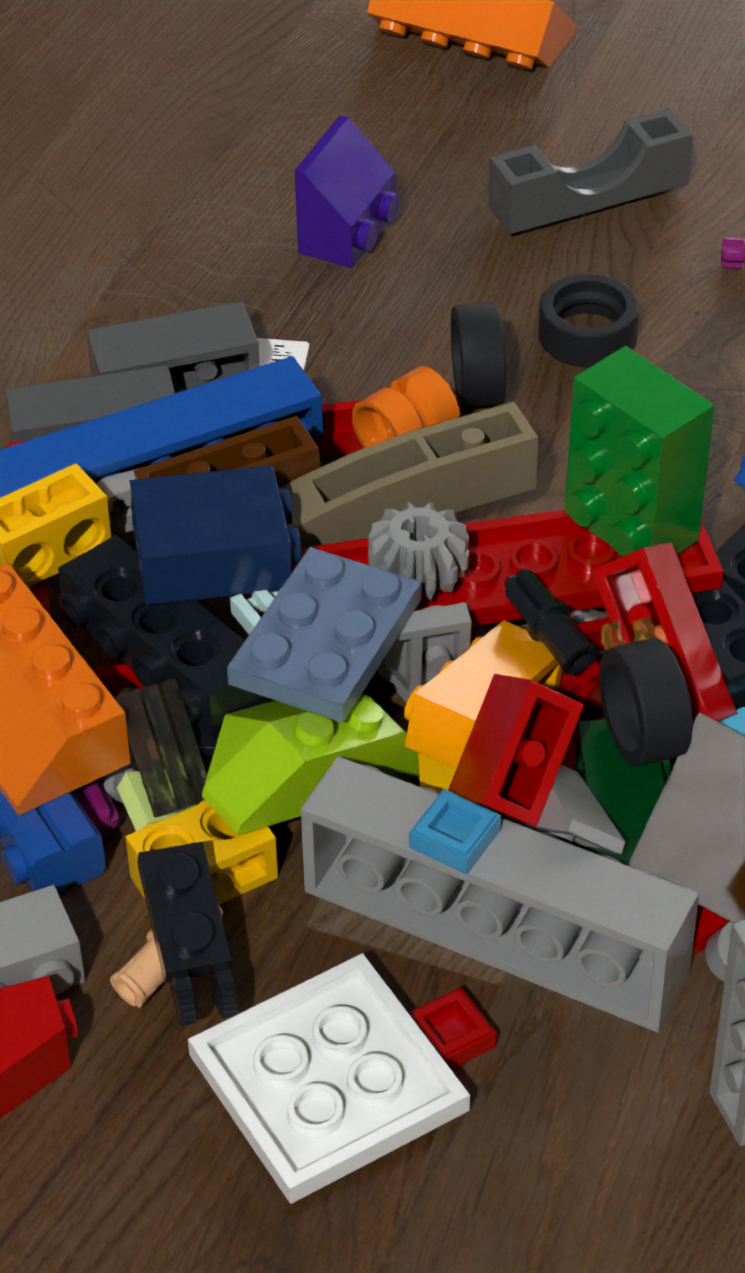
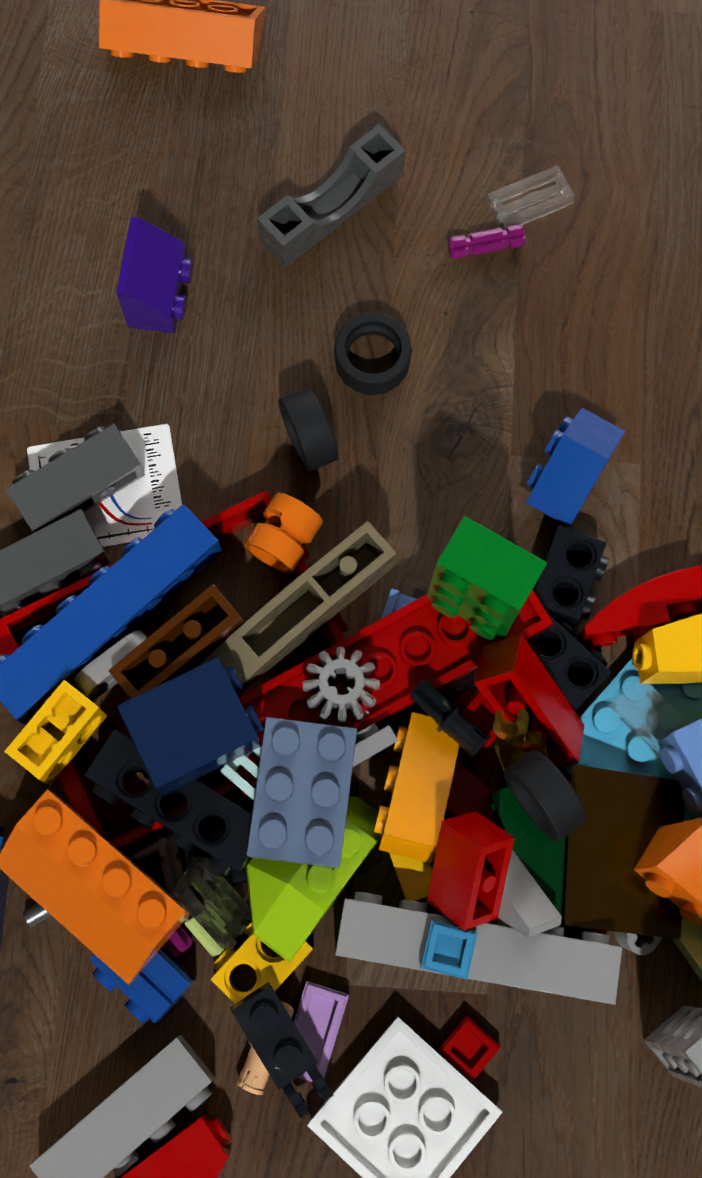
camera: 20 degrees left, 30 degrees up
(258, 944) = (319, 1021): none -> lavender tile

